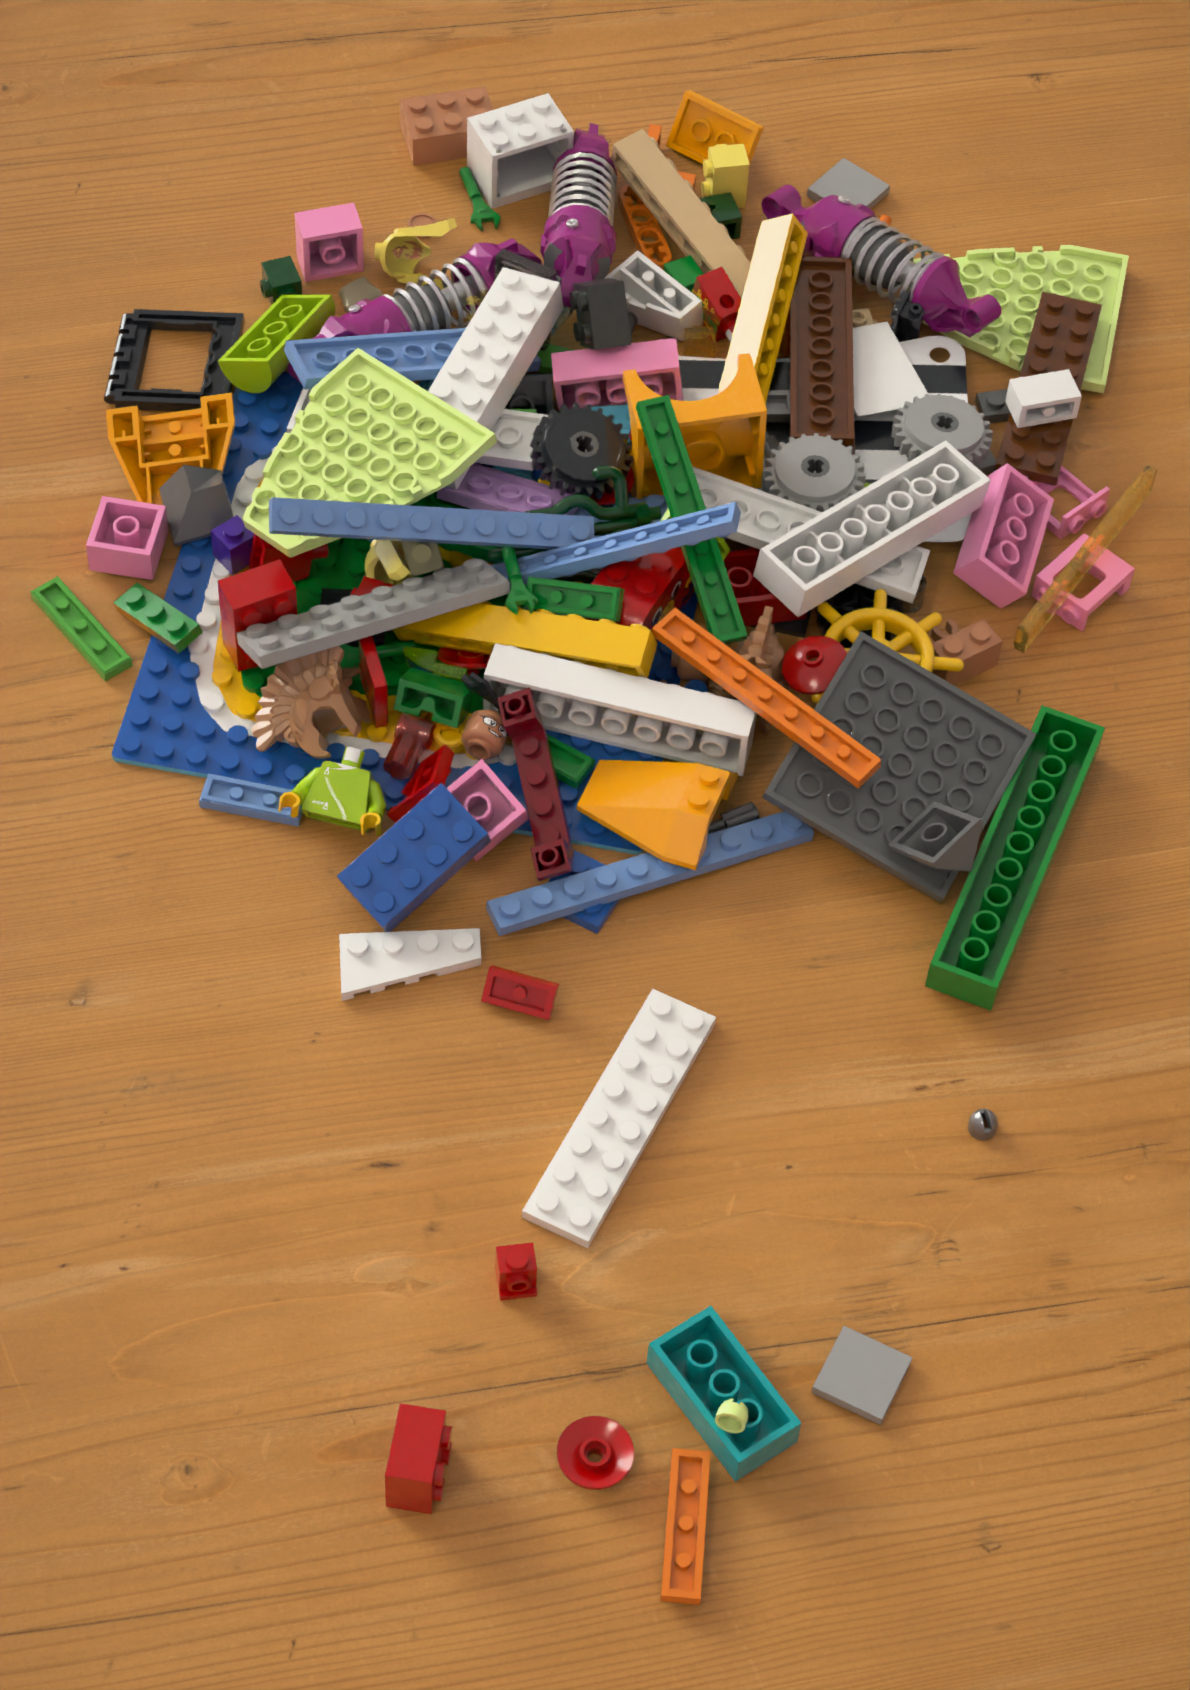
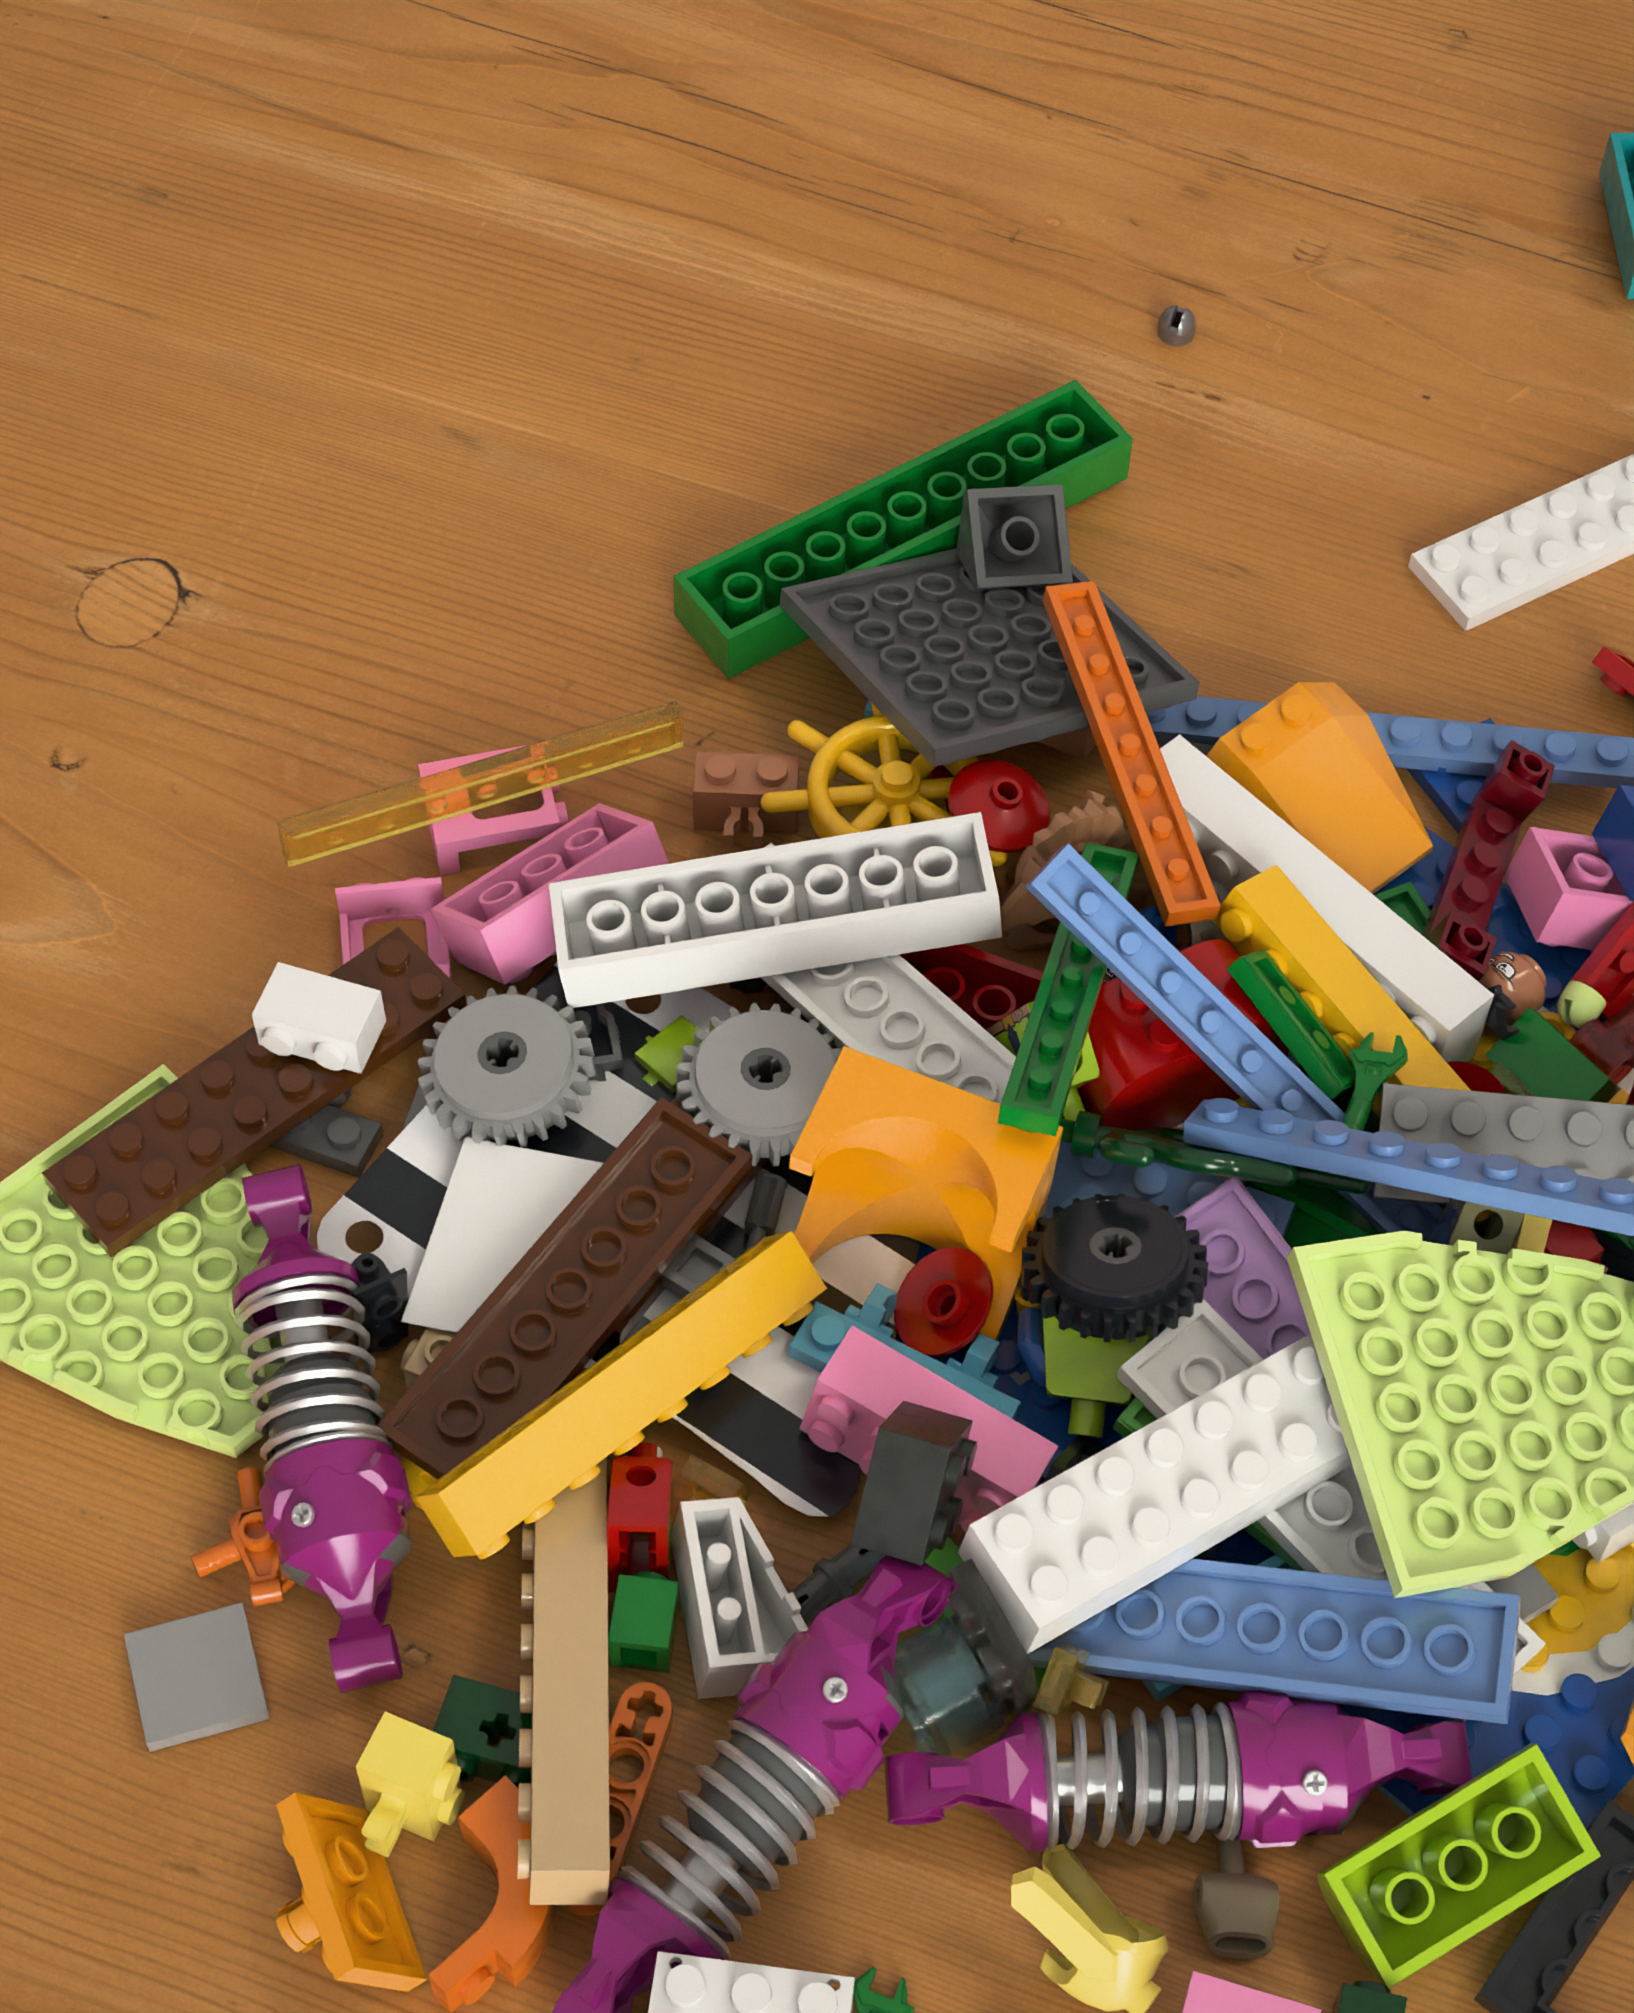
camera: 145 degrees left, 0 degrees up
(439, 733) = (1579, 1004): none -> yellowish green hinge
(862, 1375) = (1490, 191): light grey tile -> none

